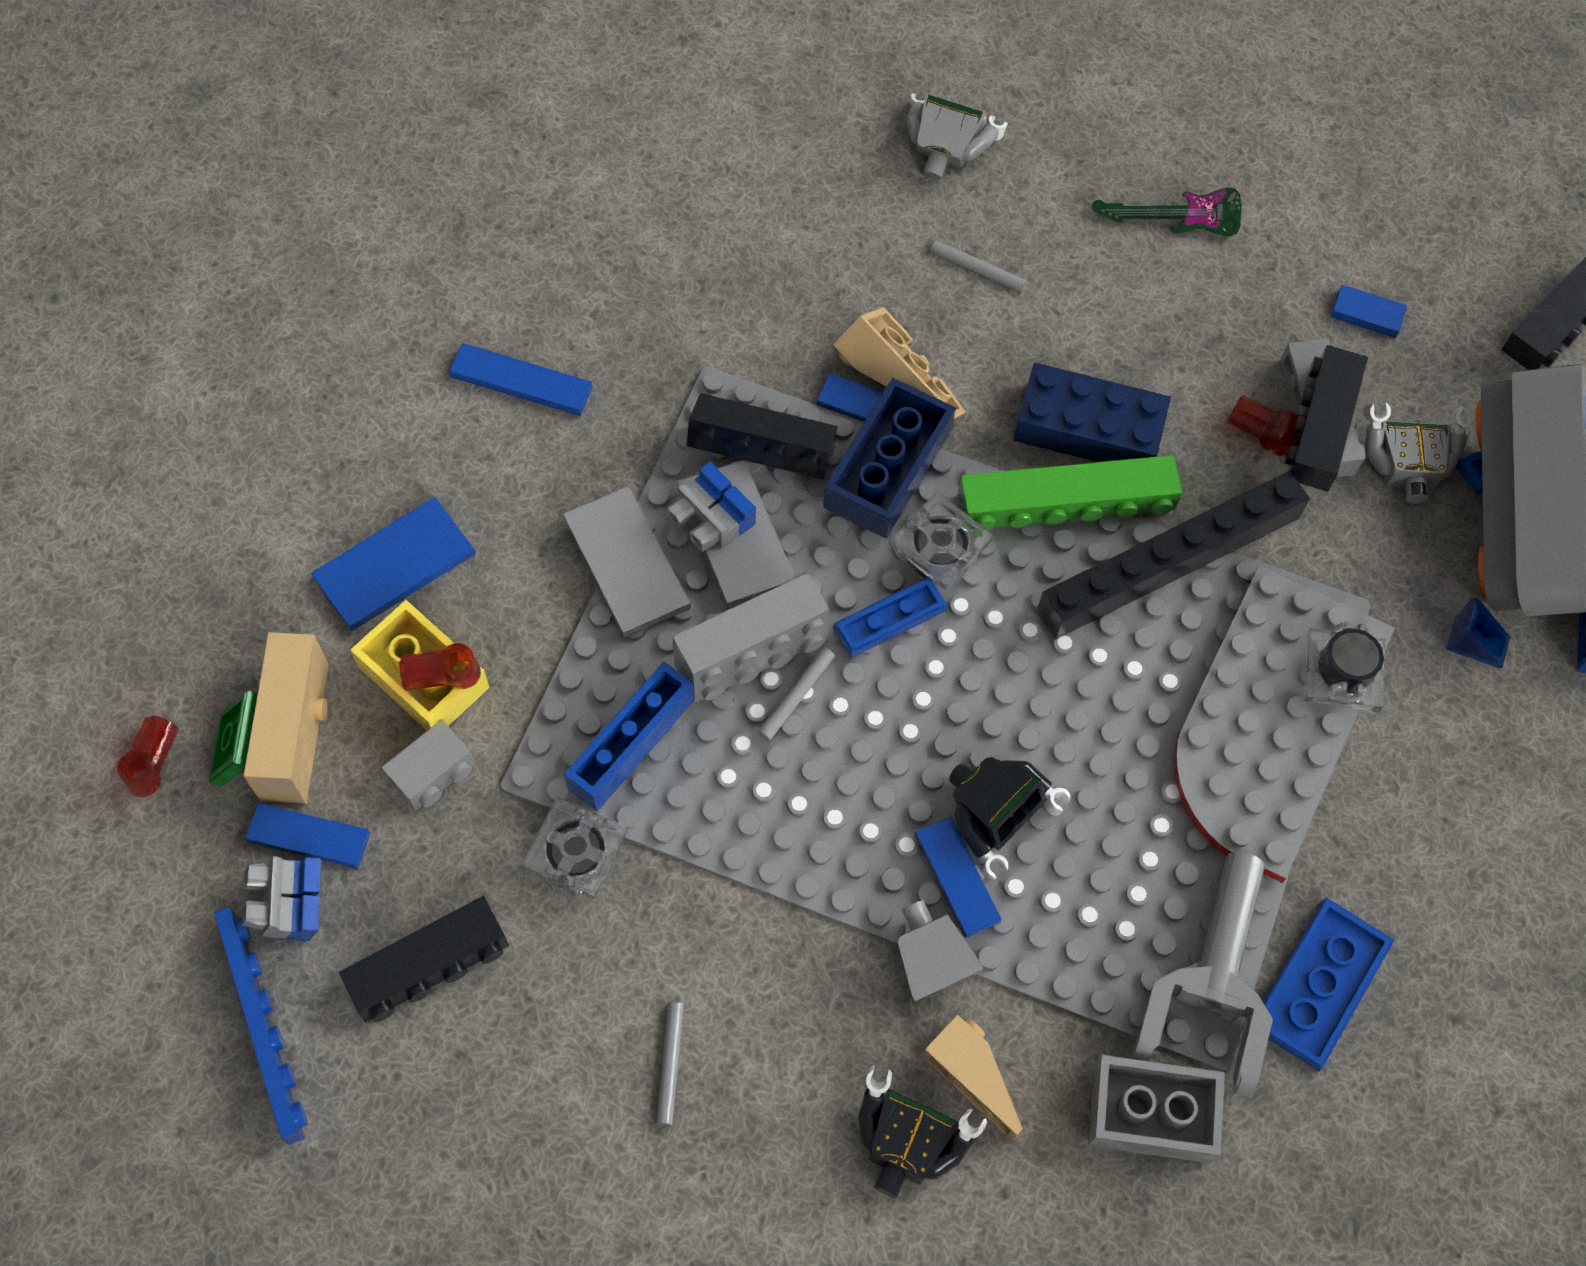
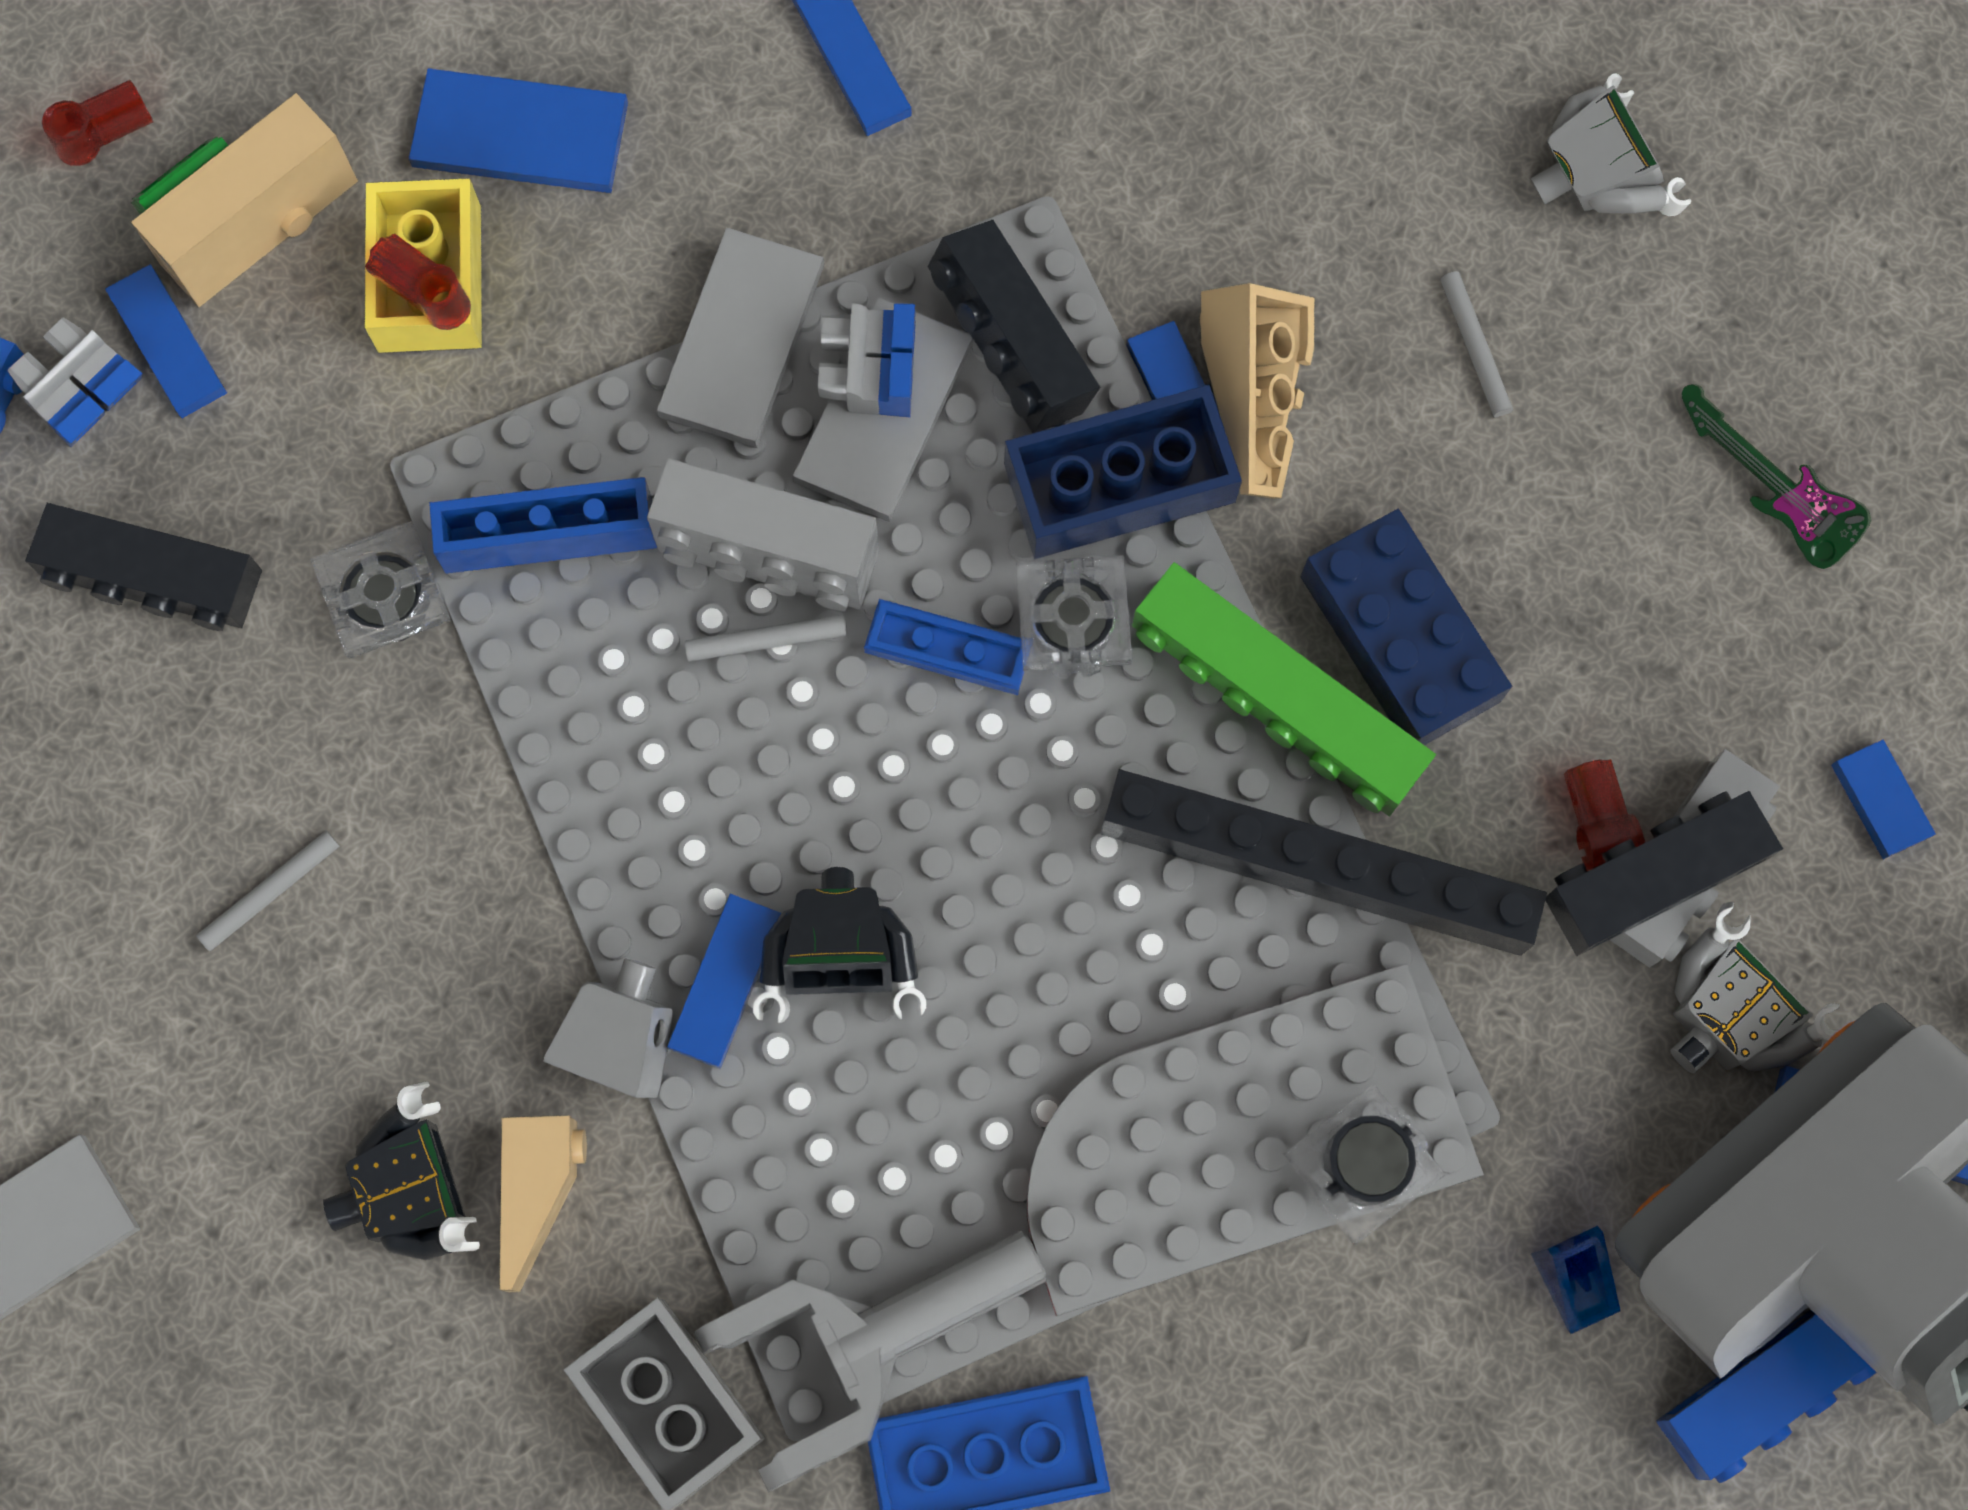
camera: 45 degrees right, 10 degrees up
(429, 766) = (338, 375): light grey brick -> none

